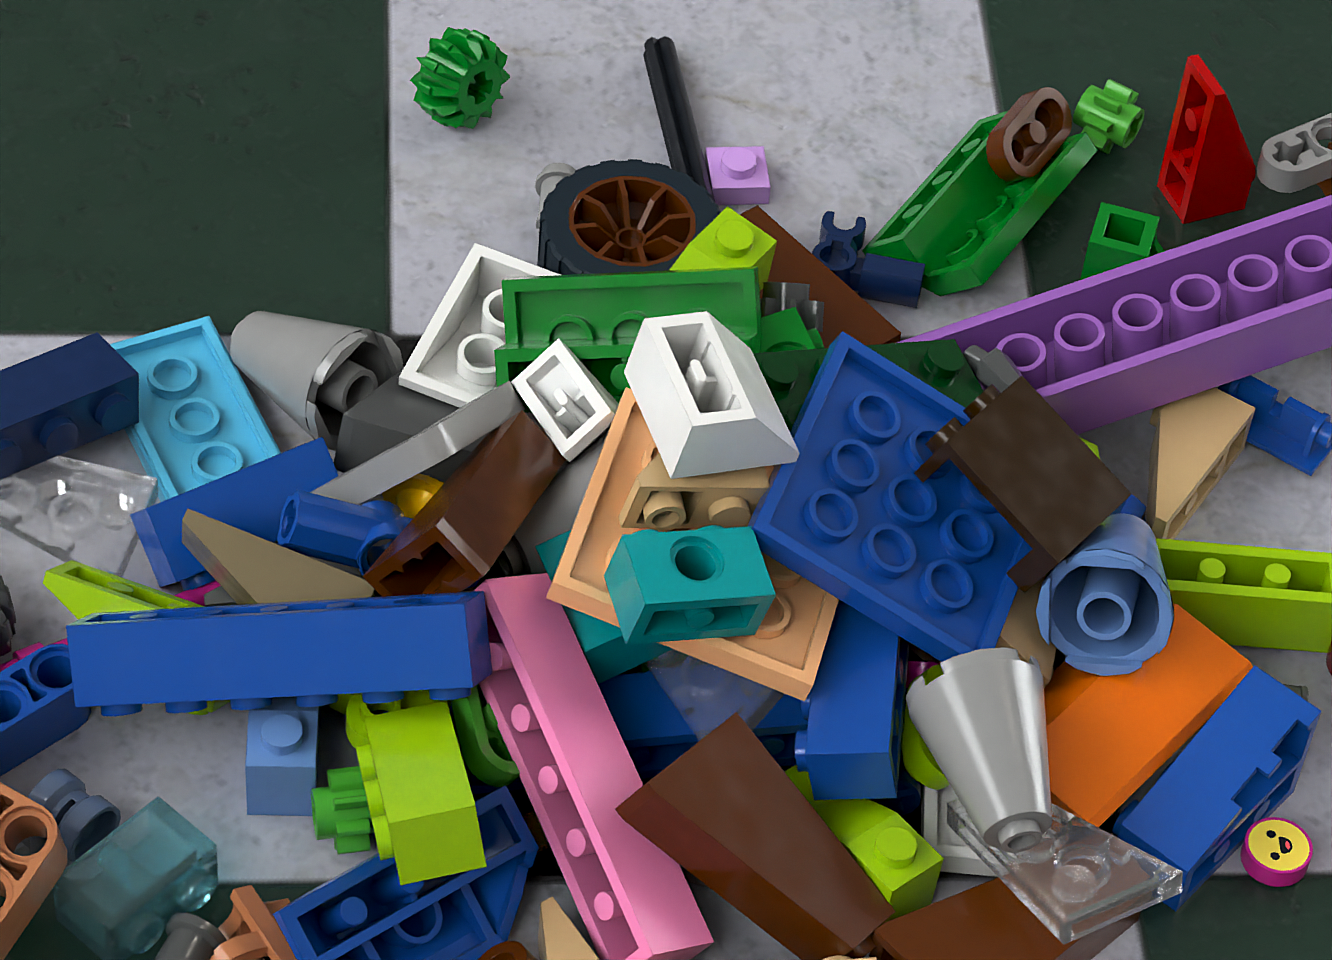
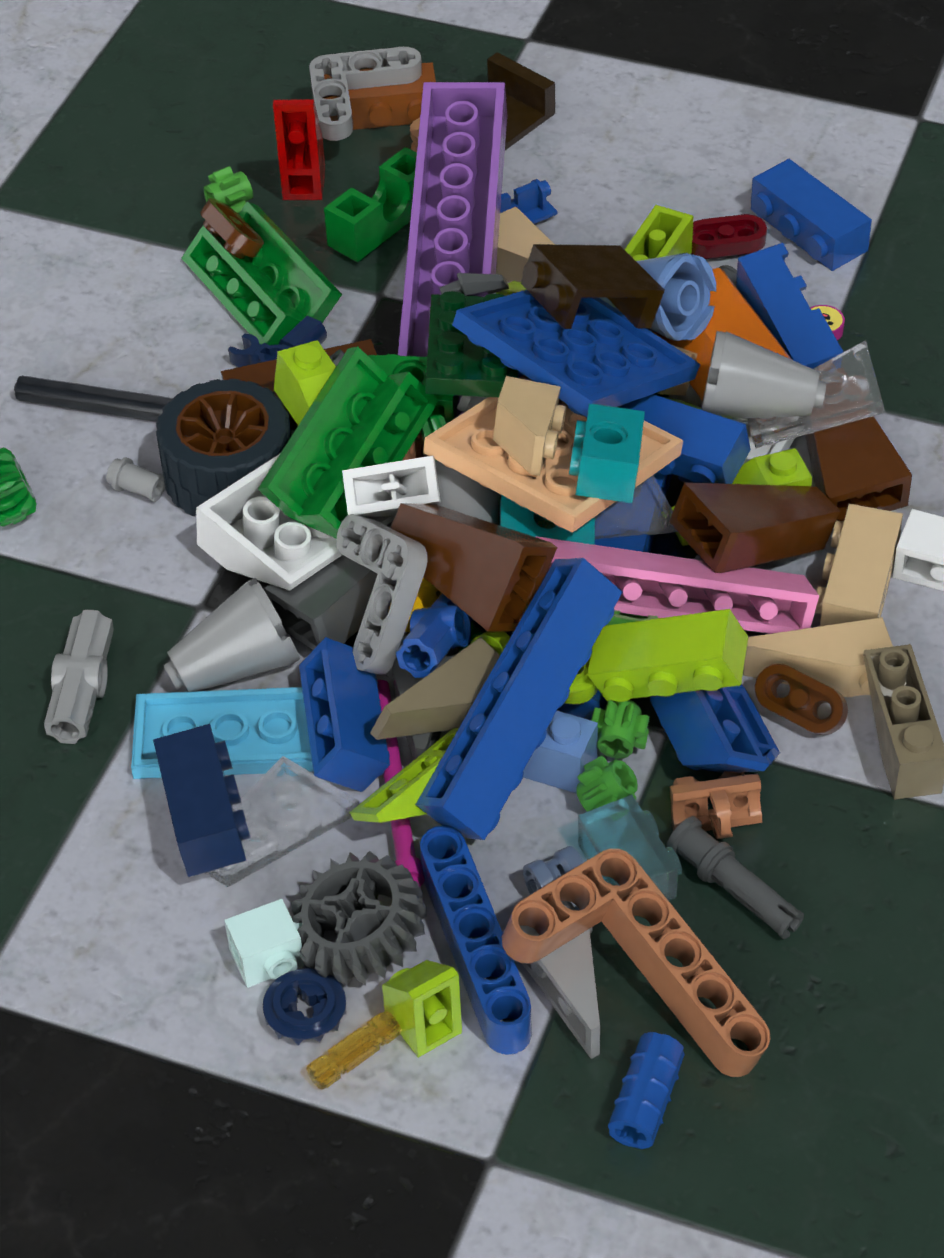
camera: 60 degrees left, 0 degrees up
(210, 253) = (79, 677): none -> light grey piece
(253, 835) = (605, 783): none -> bright green gear
(705, 398) = (506, 377): white slope -> none
(738, 175) = (163, 380): lavender plate -> none

